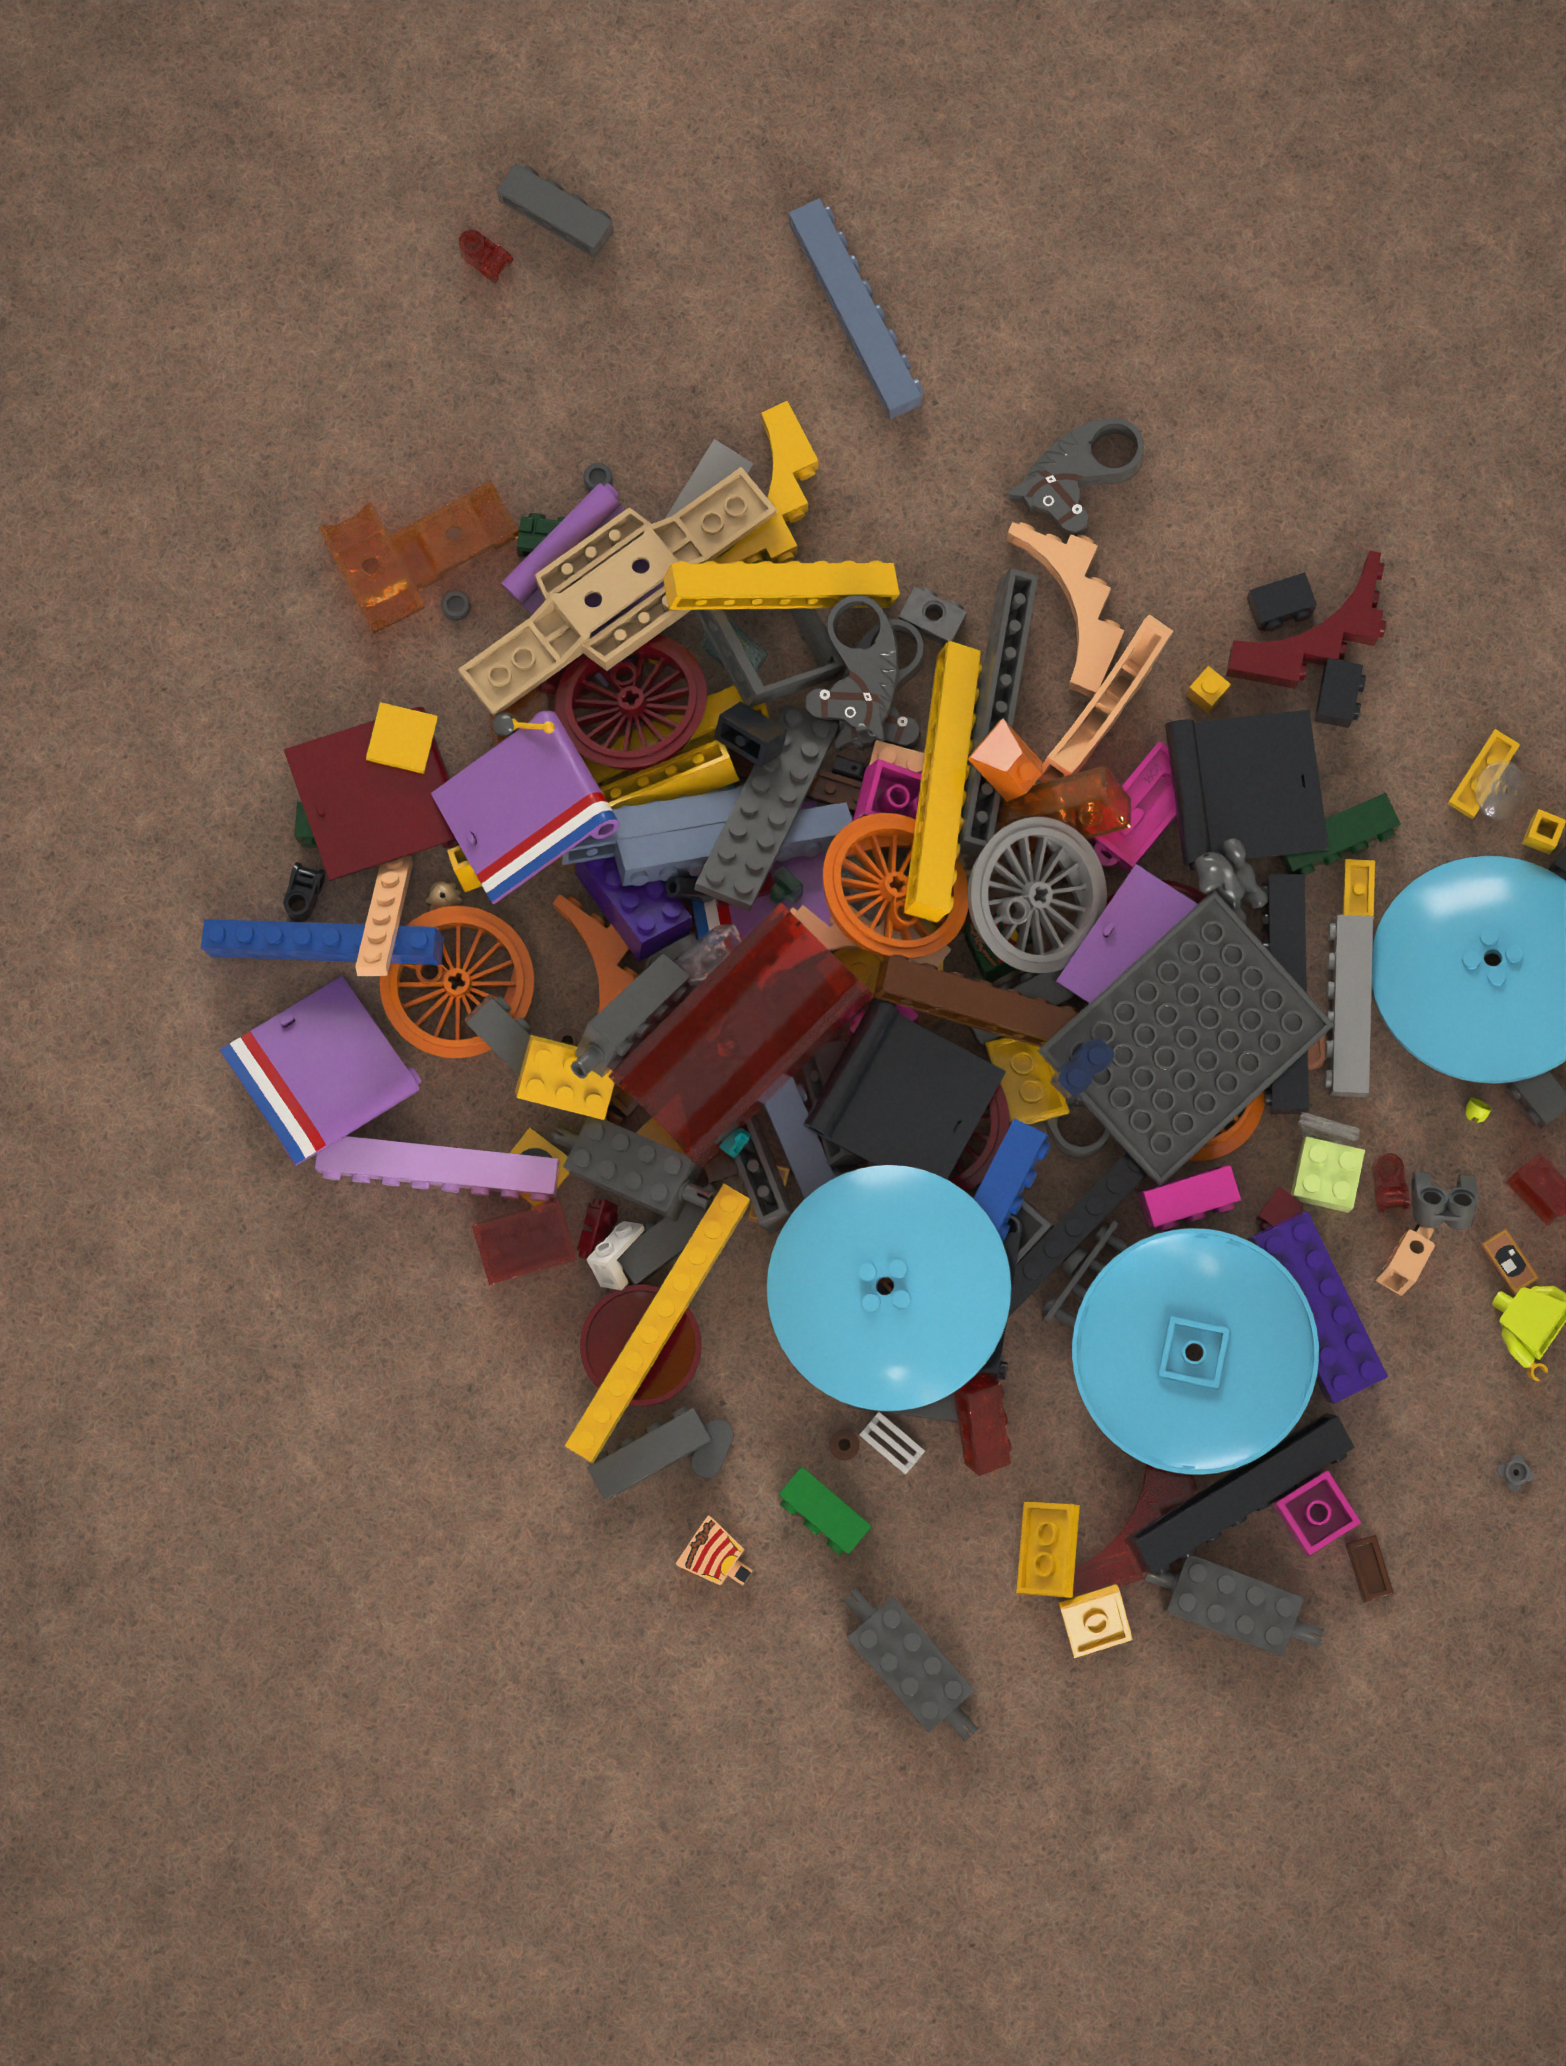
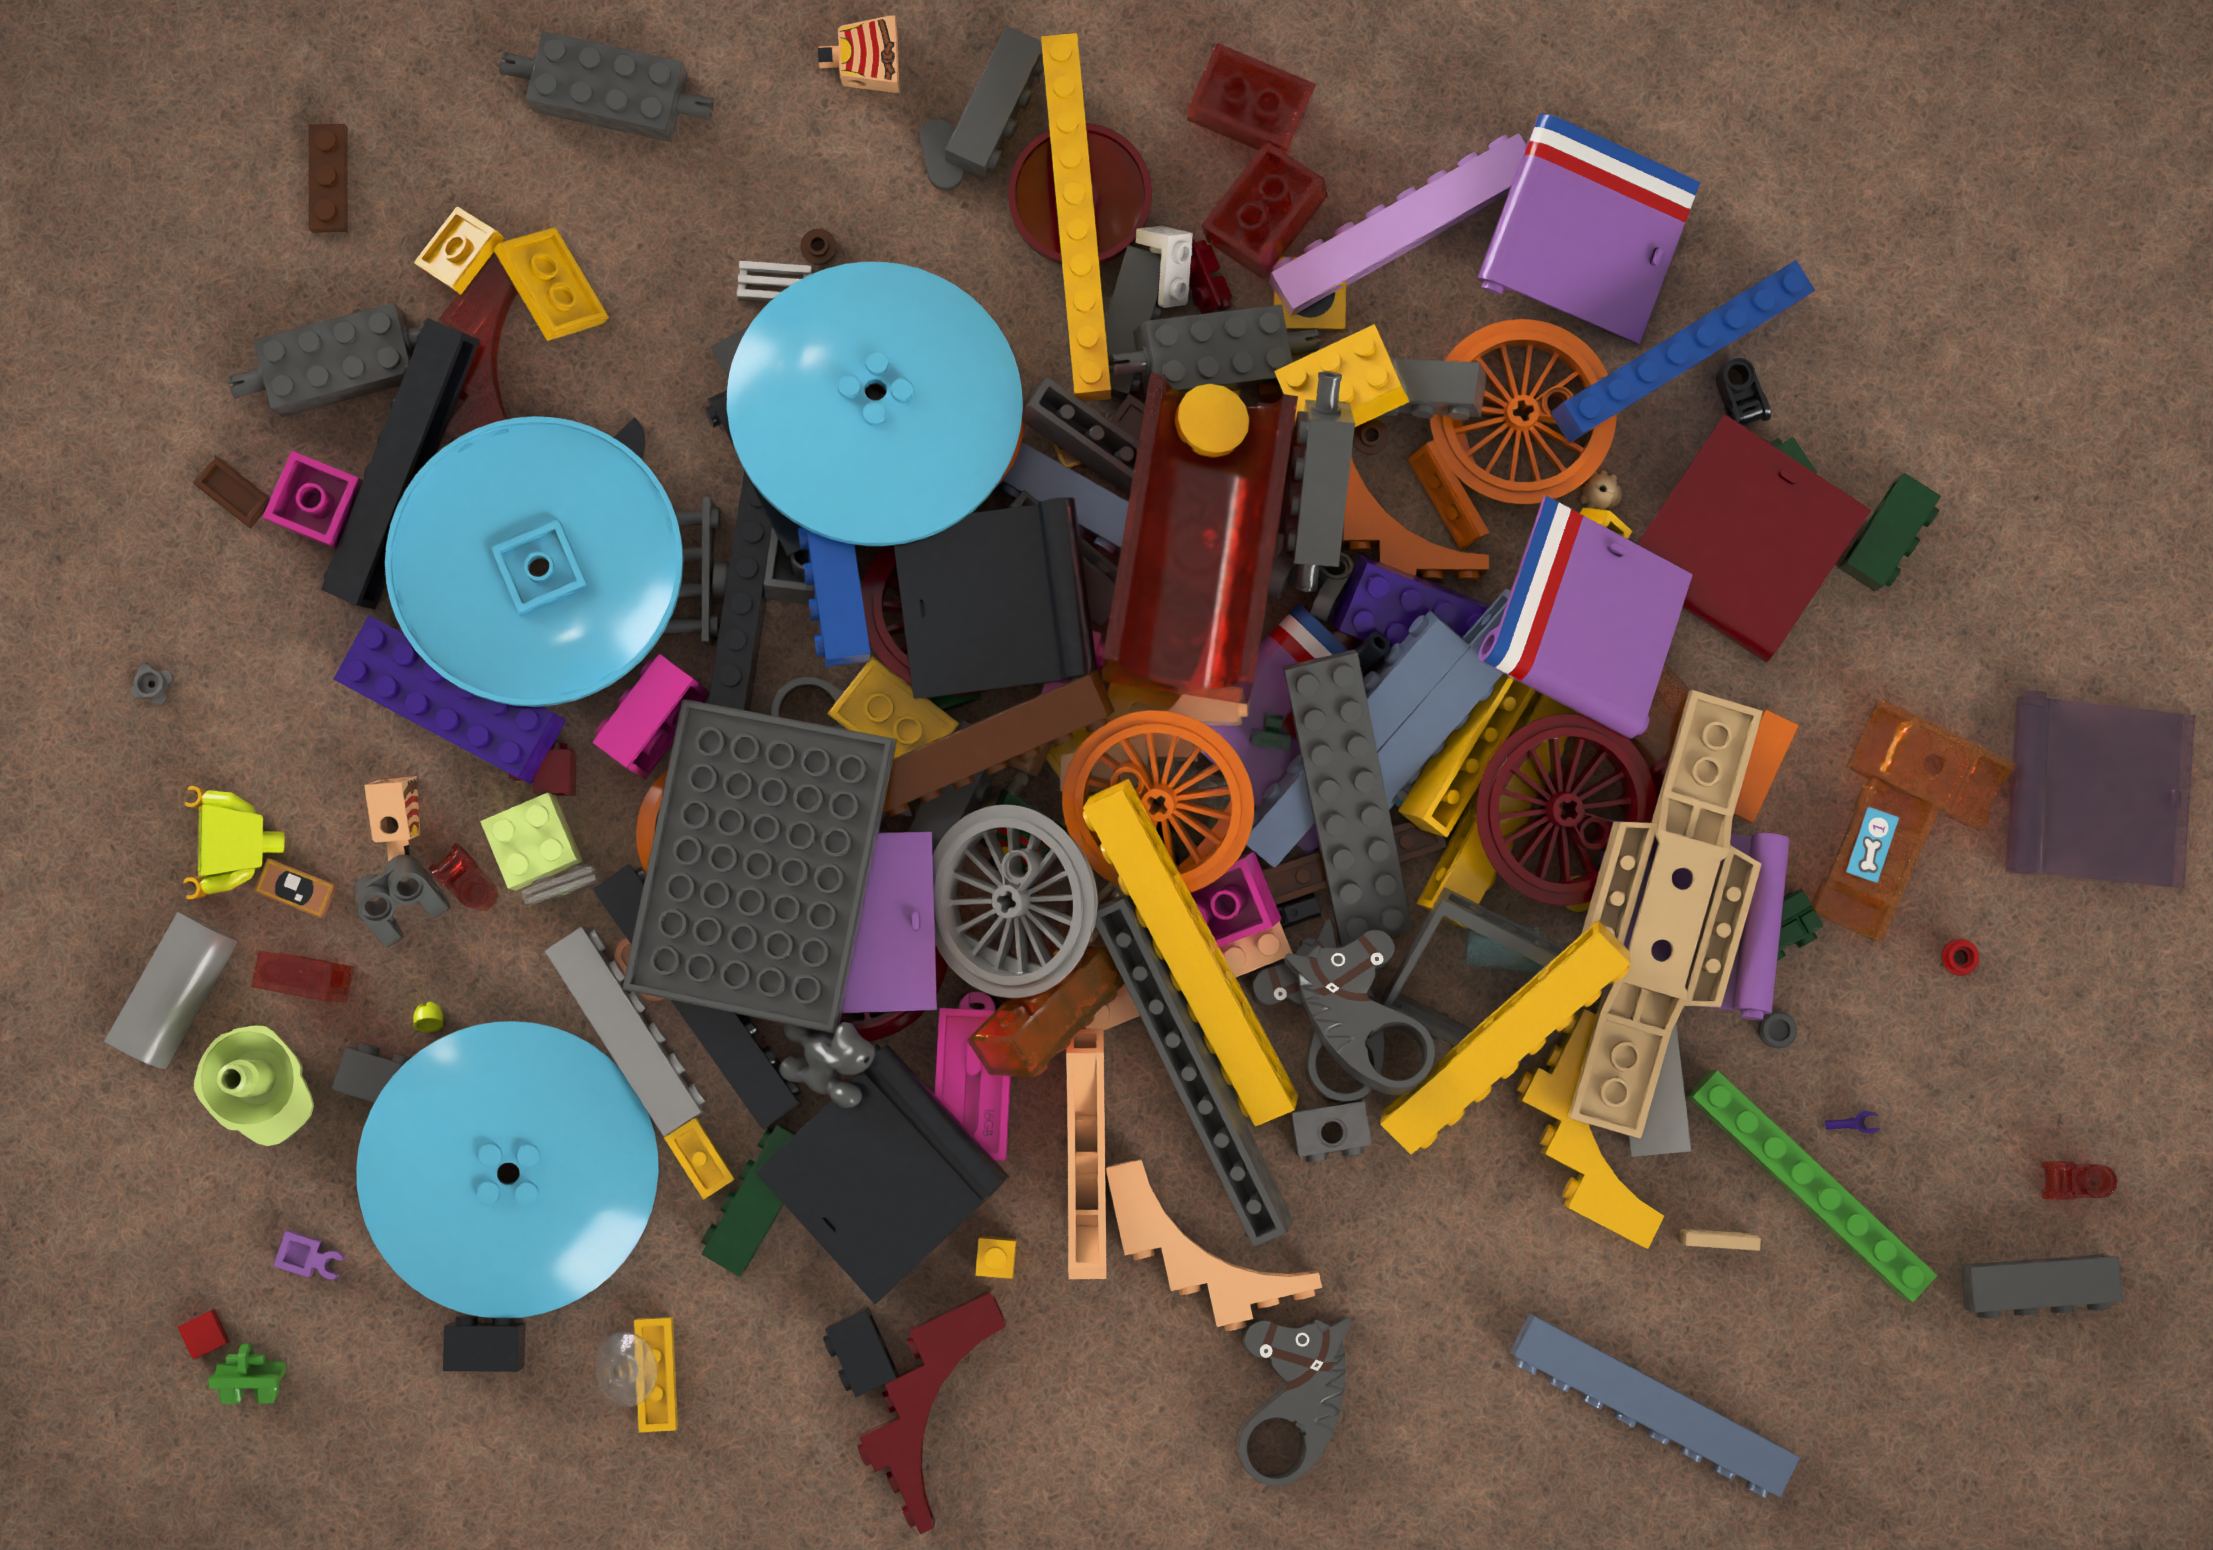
camera: 140 degrees right, 5 degrees up
(276, 731) = (1891, 533): none -> dark green brick
(277, 476) = (2099, 792): none -> door
(384, 918) = (1639, 405): light nougat plate -> none
(401, 738) = (1764, 608): yellow tile -> none
(443, 431) = (1971, 957): none -> red plate
(450, 543) = (1872, 844): none -> medium azure sticker
(455, 605) = (1817, 792): dark grey tile -> none
(462, 652) = (1765, 759): none -> orange tile
(477, 1324) = (1250, 100): none -> clear red brick
(507, 723) = (1668, 688): hinge -> none
(547, 965) = (1448, 495): none -> orange tile
(592, 385) = (1853, 1123): none -> dark purple hand
(653, 369) = (1811, 1185): none -> bright green brick
(673, 1110) = (1212, 420): none -> yellow tile
(709, 952) = (1291, 604): clear brick -> none
(735, 1142) = (1129, 440): teal tile -> none
(736, 376) = (1719, 1239): none -> tan tile
(750, 734) = (1420, 859): black brick -> none
(823, 1512) = (790, 169): green brick -> none
(983, 1424) = (692, 348): clear red brick -> none
(1006, 762) = (1138, 1016): orange slope -> none
(1069, 1403) = (633, 437): none -> black tile
(1087, 1060) = (837, 738): dark blue brick -> none
(1151, 1746) = (328, 178): none -> reddish brown plate
(1282, 602) = (986, 1408): black brick -> none
(1543, 831) = (551, 1354): yellow brick -> none

